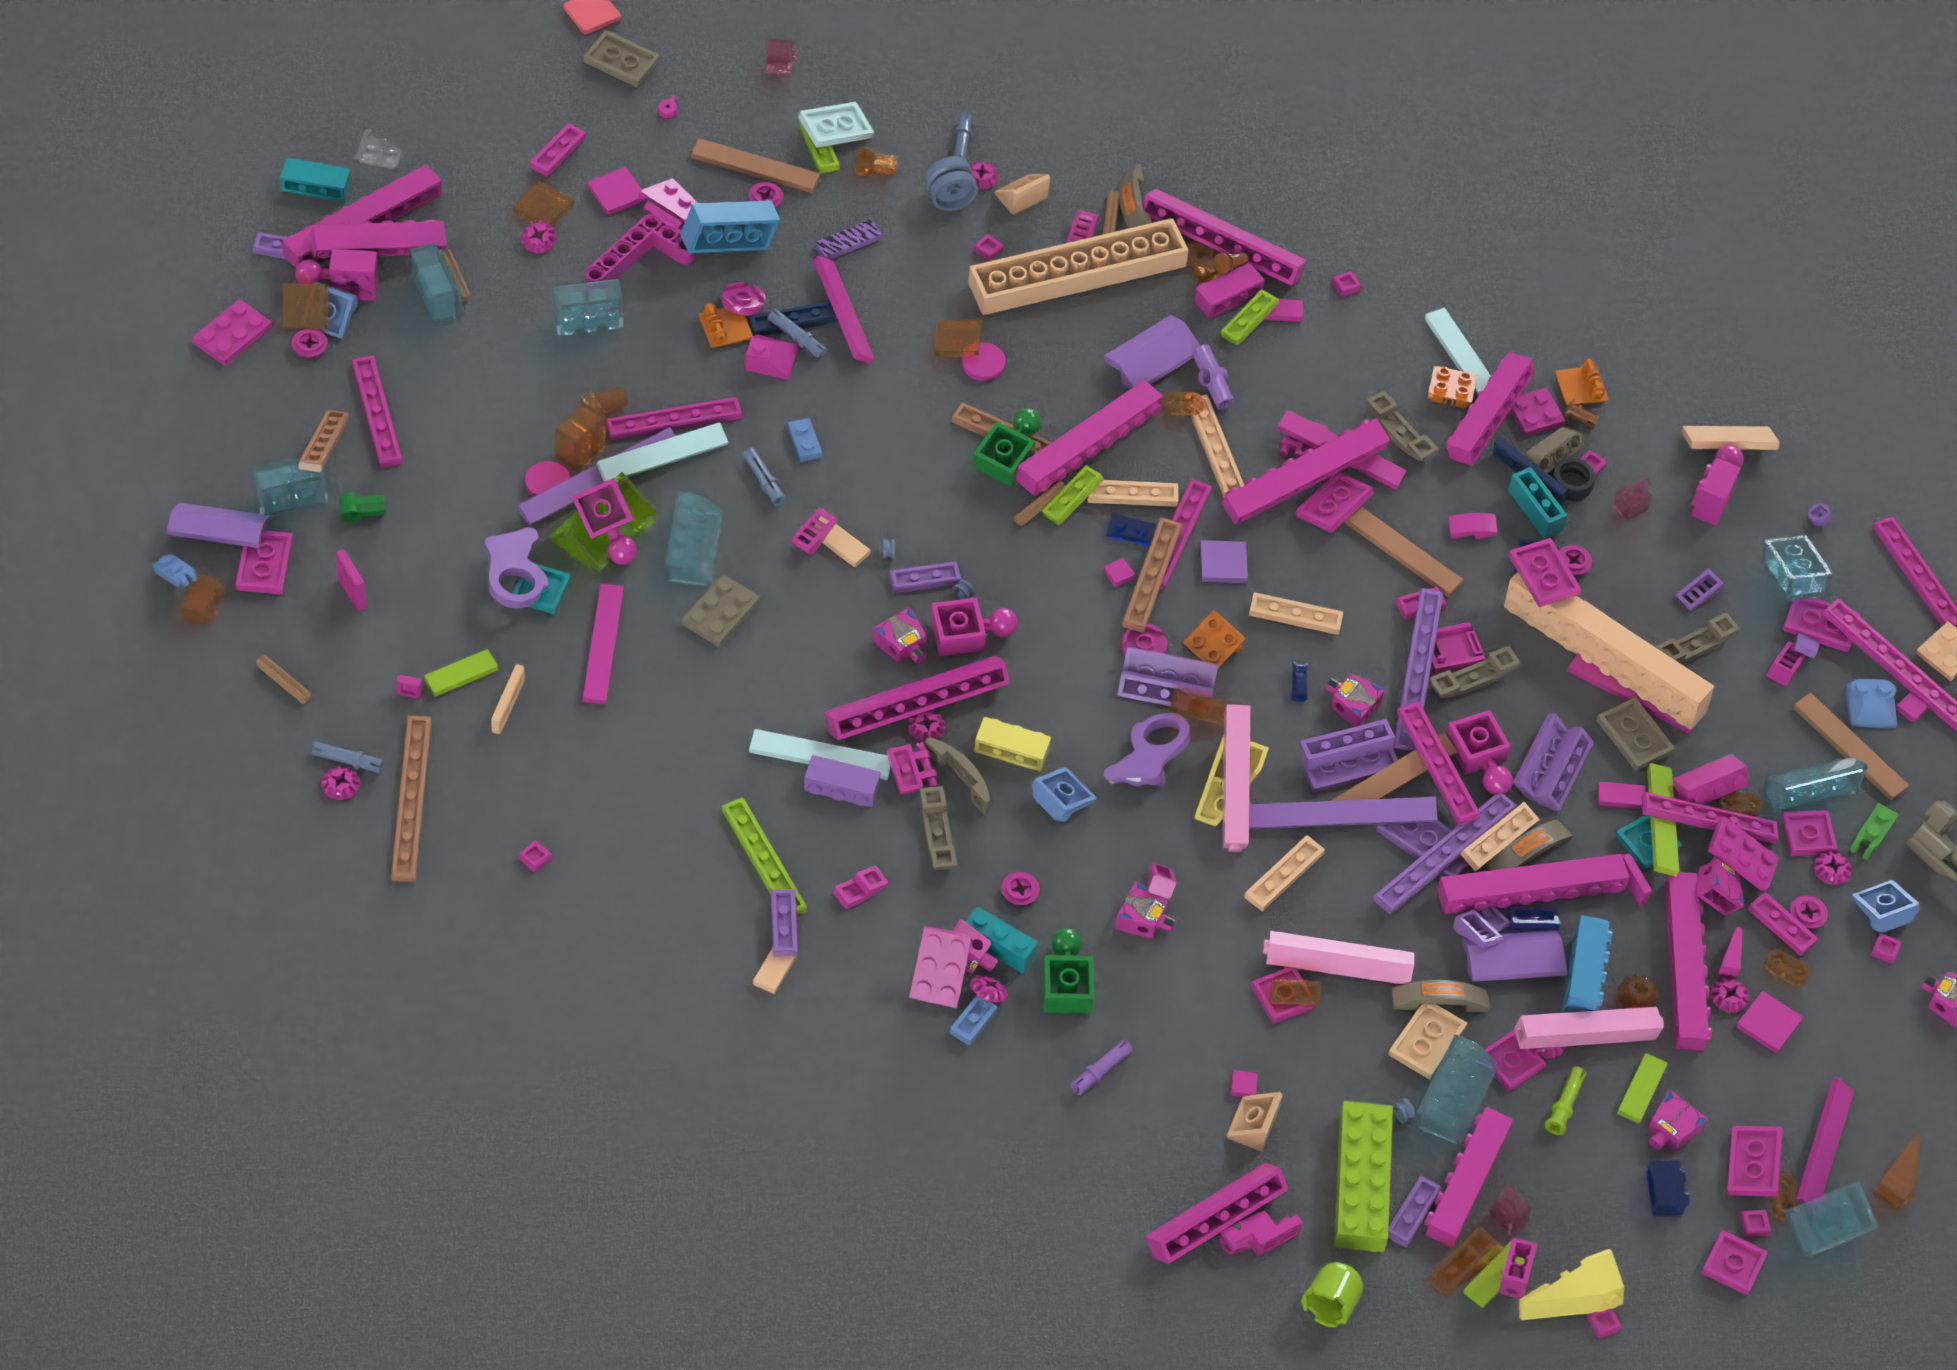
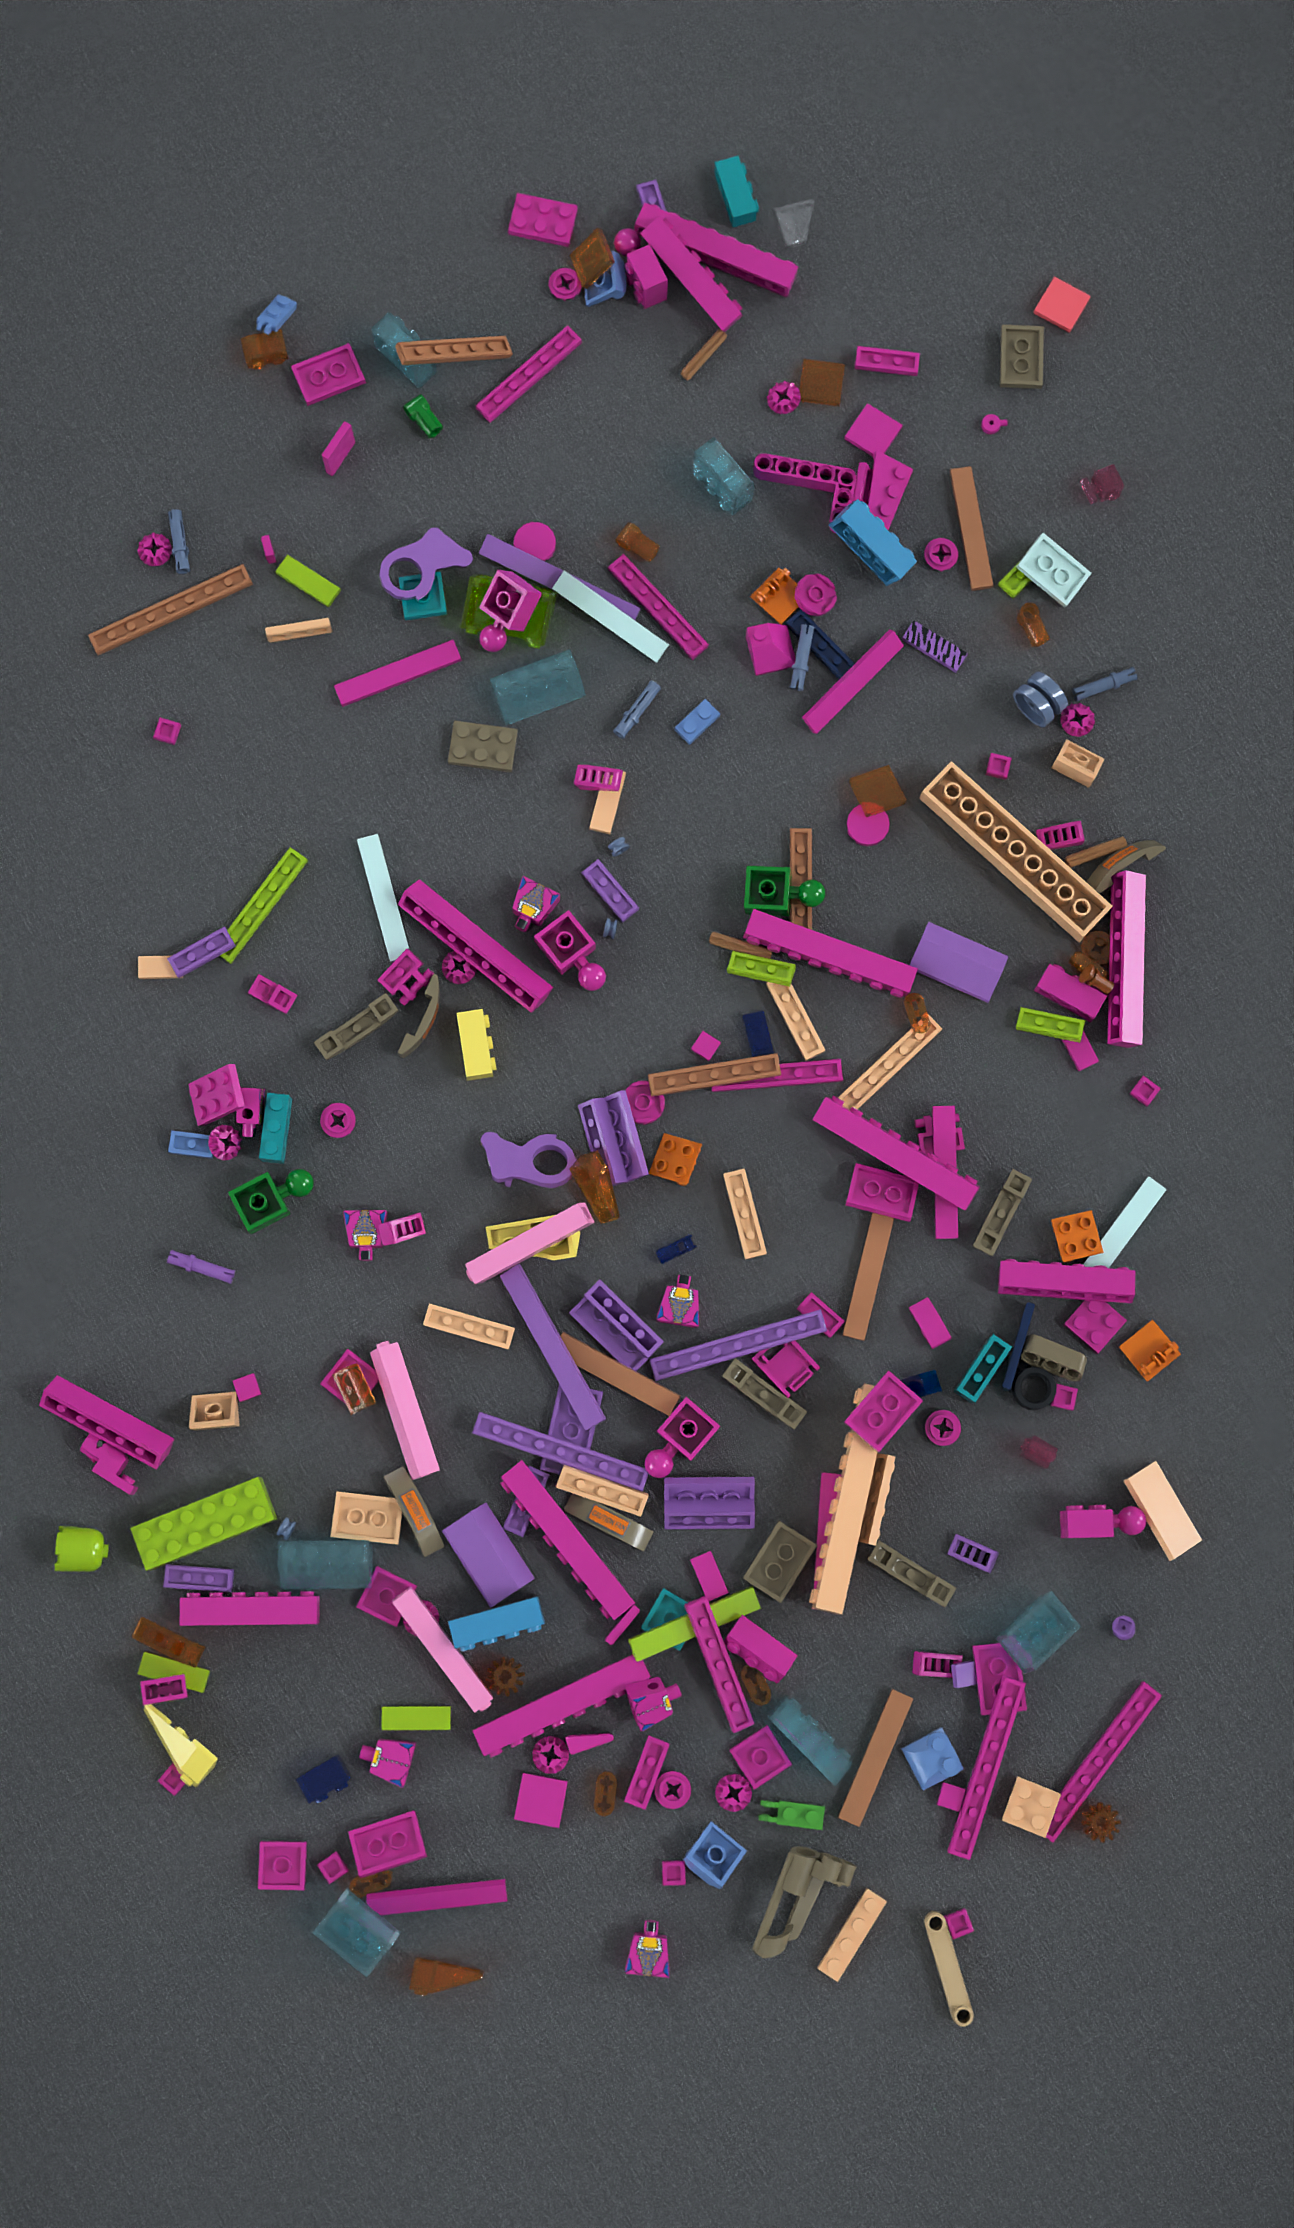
camera: 65 degrees right, 25 degrees up
(217, 525) = (341, 319): medium lavender slope -> none
(284, 679) = (226, 453): medium nougat axle -> none
(435, 283) = (675, 344): clear light blue brick -> none
(581, 437) = (583, 544): clear orange brick -> none
(842, 781) = (362, 928): medium lavender brick -> none
(1061, 794) = (447, 1109): medium blue slope -> none
(1213, 377) = (961, 1025): medium lavender piece -> none
(1223, 561) = (768, 1127): medium lavender tile -> none
(1438, 763) = (643, 1405): dark pink tile -> none
(1473, 925) = (502, 1500): medium lavender slope -> none
(1510, 1210) = (234, 1659): clear pink brick -> none
(1533, 918) = (534, 1555): clear blue plate -> none
(1562, 1109) = (356, 1659): lime pin -> none
(1580, 414) = (1112, 1364): dark orange pin -> none
(1743, 854) = (693, 1709): dark pink plate -> none

